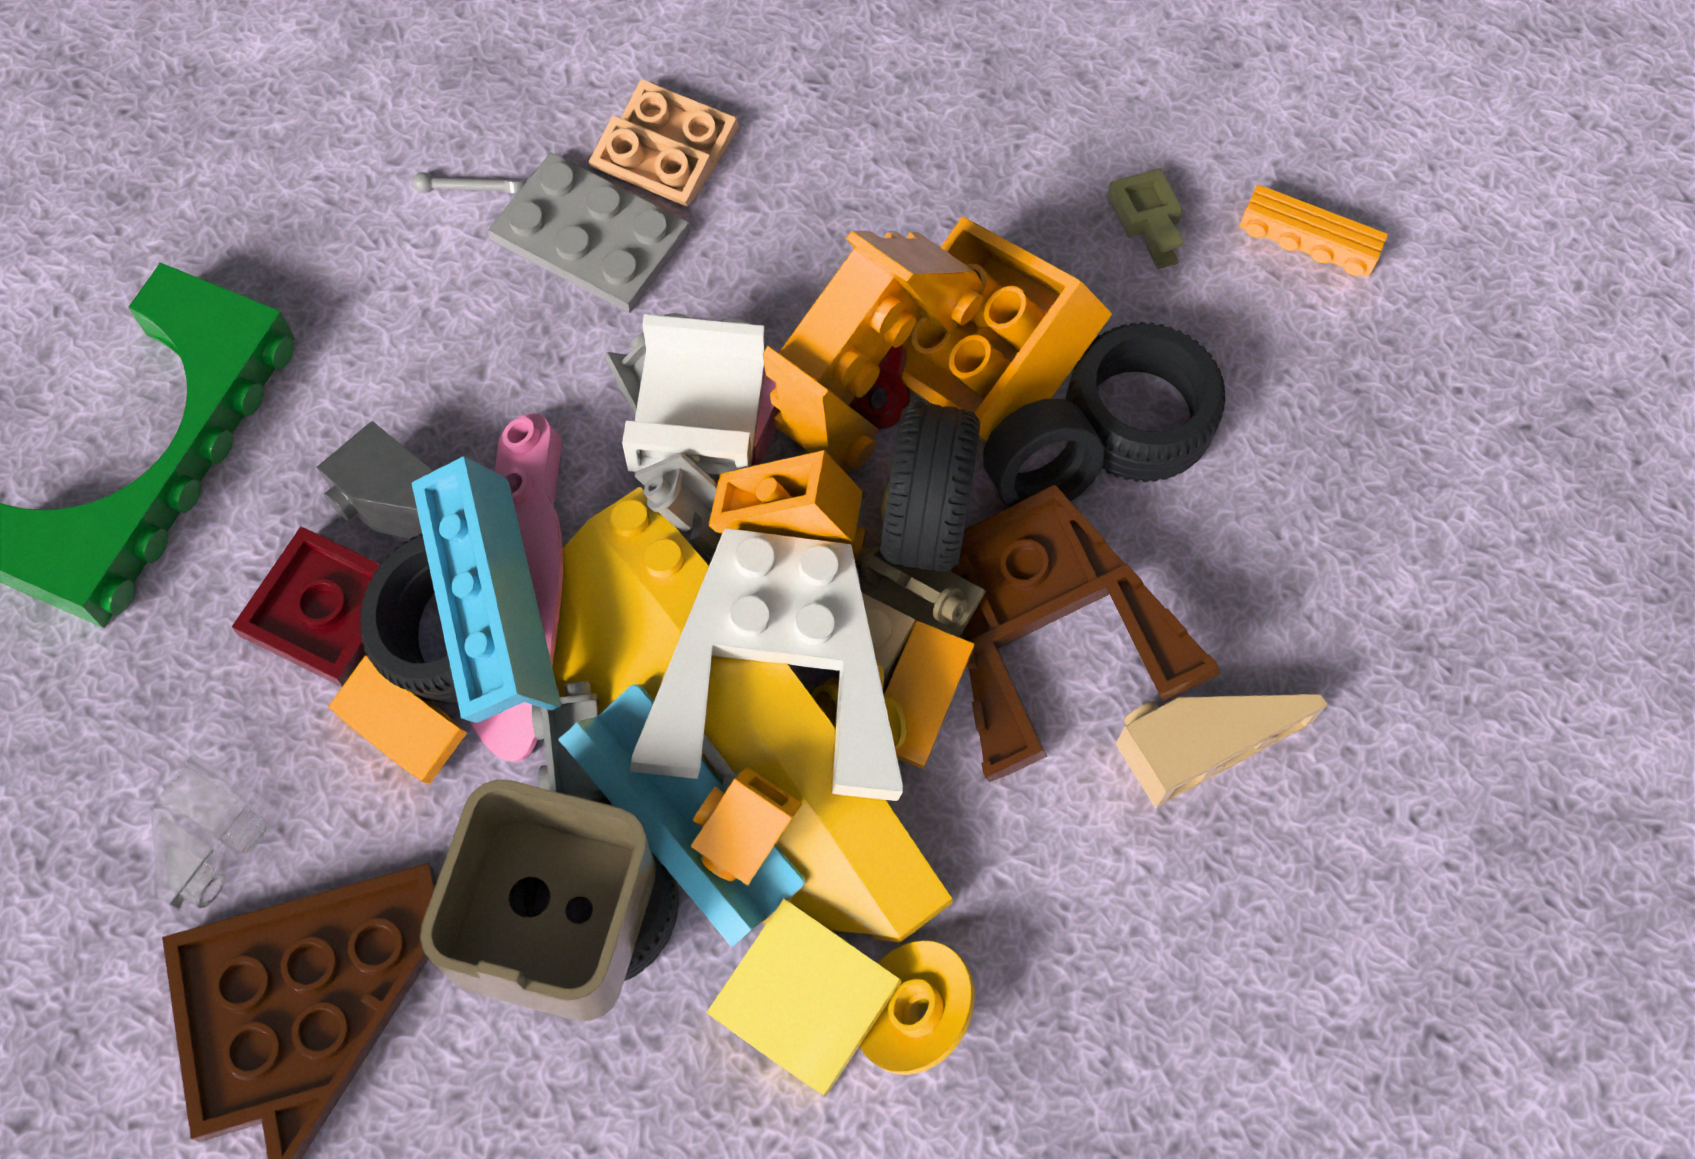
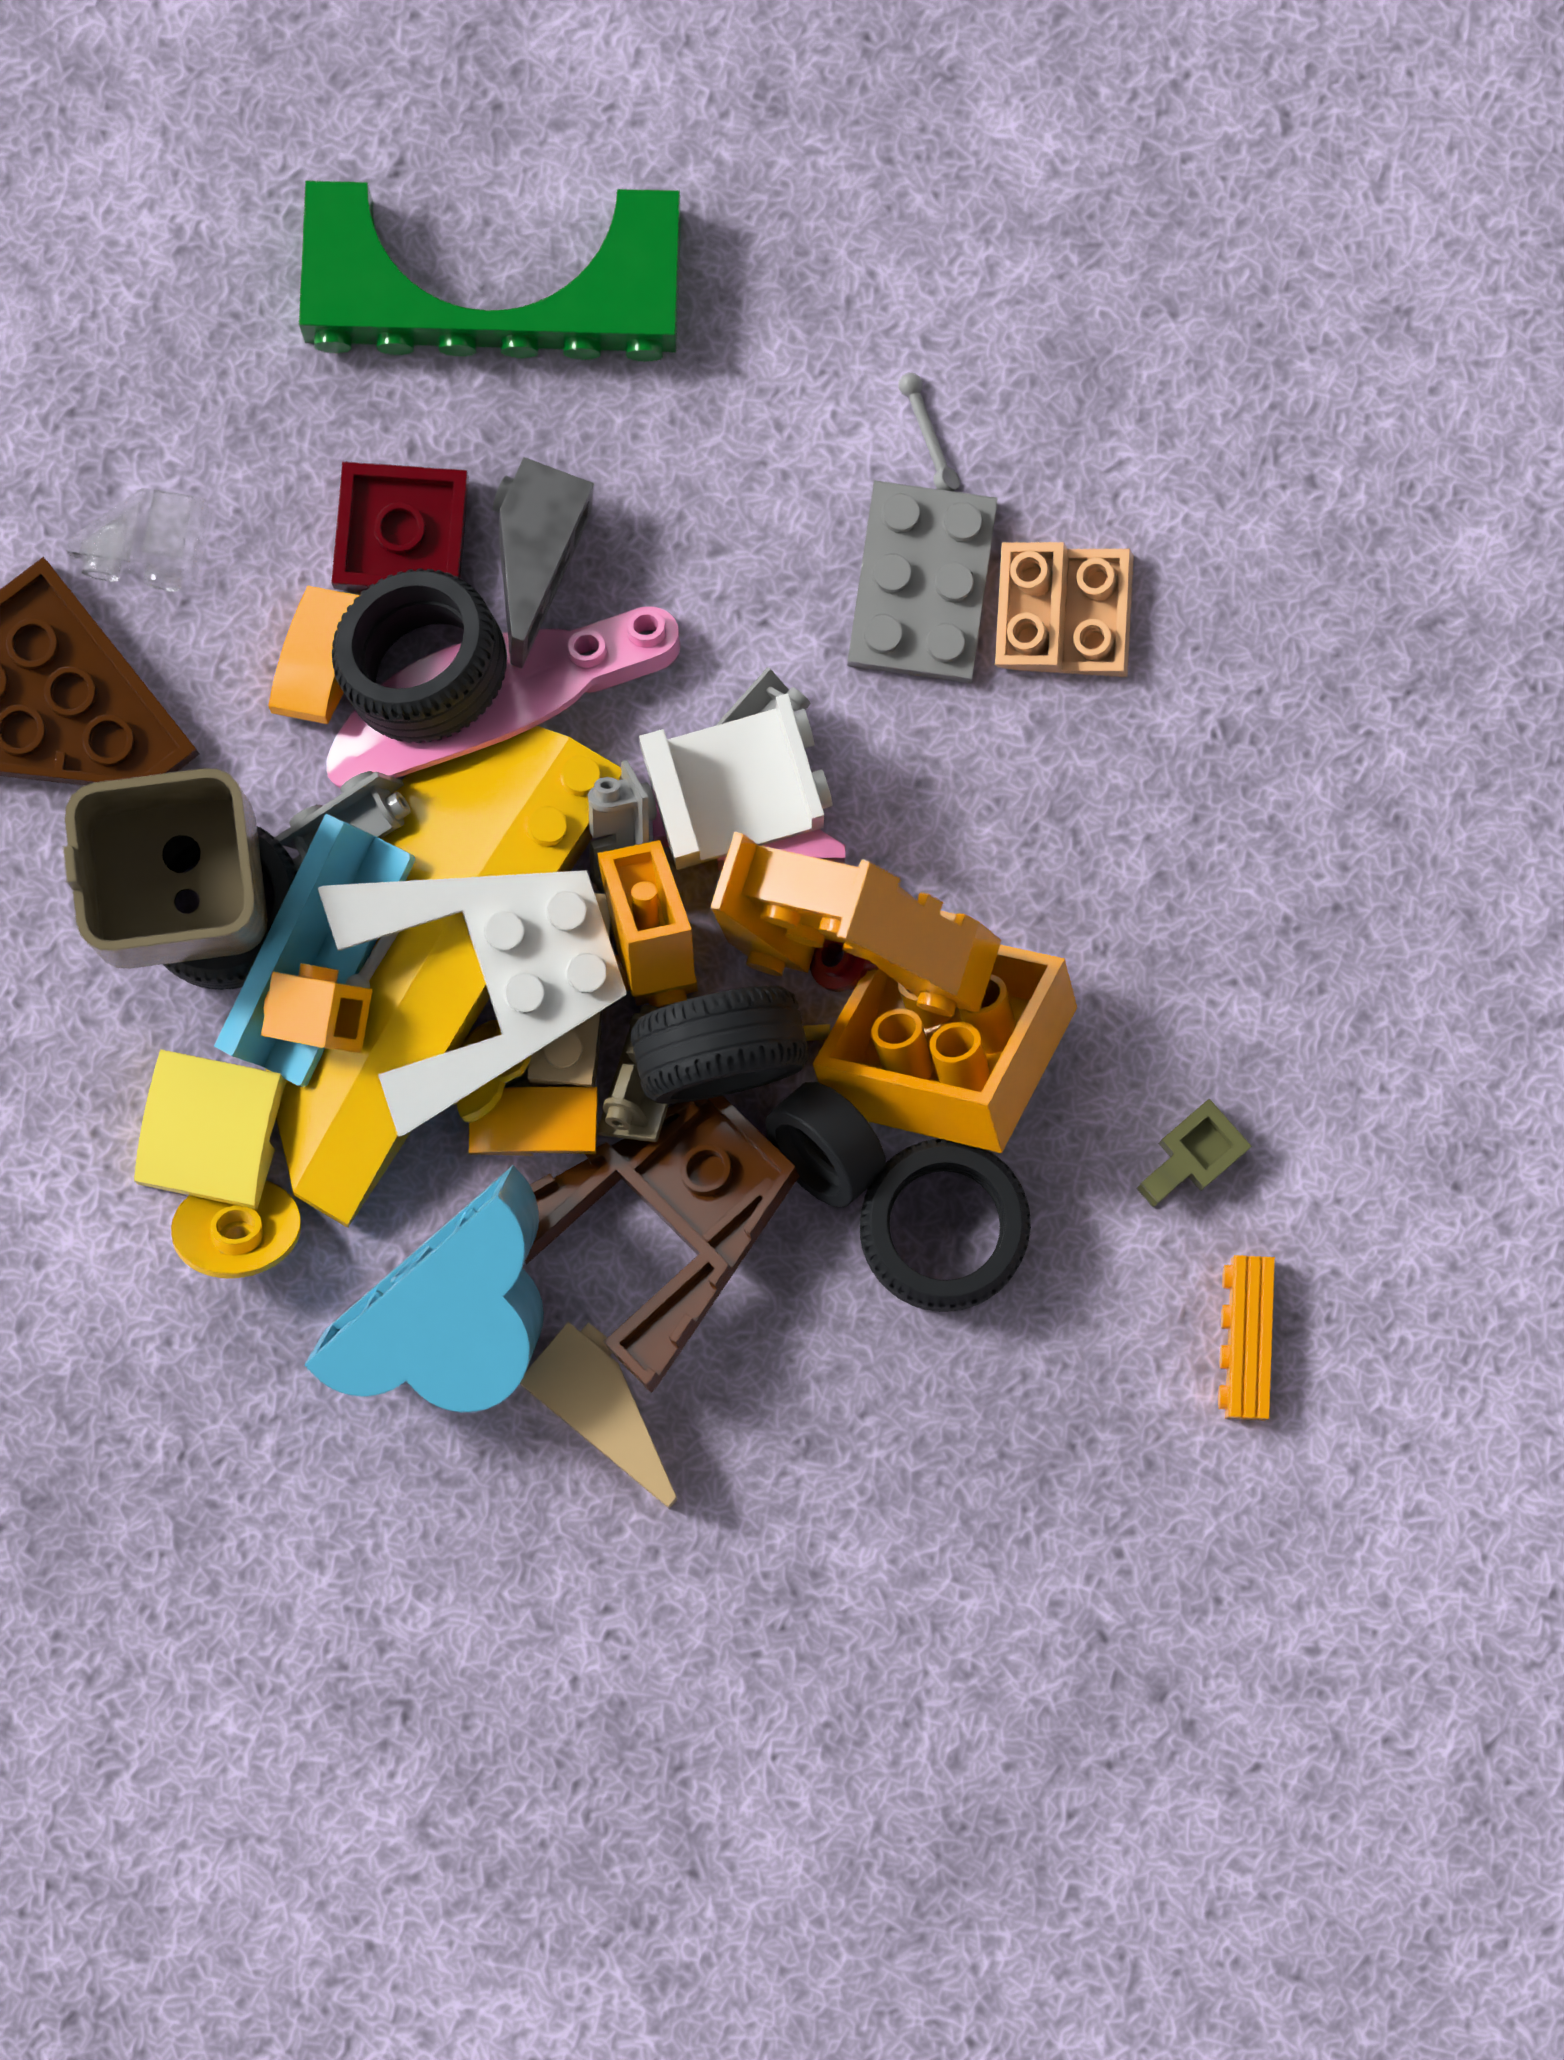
camera: 70 degrees right, 15 degrees up
(484, 591) = (436, 683): medium azure panel -> none
(1080, 821) = (451, 1315): none -> medium azure brick

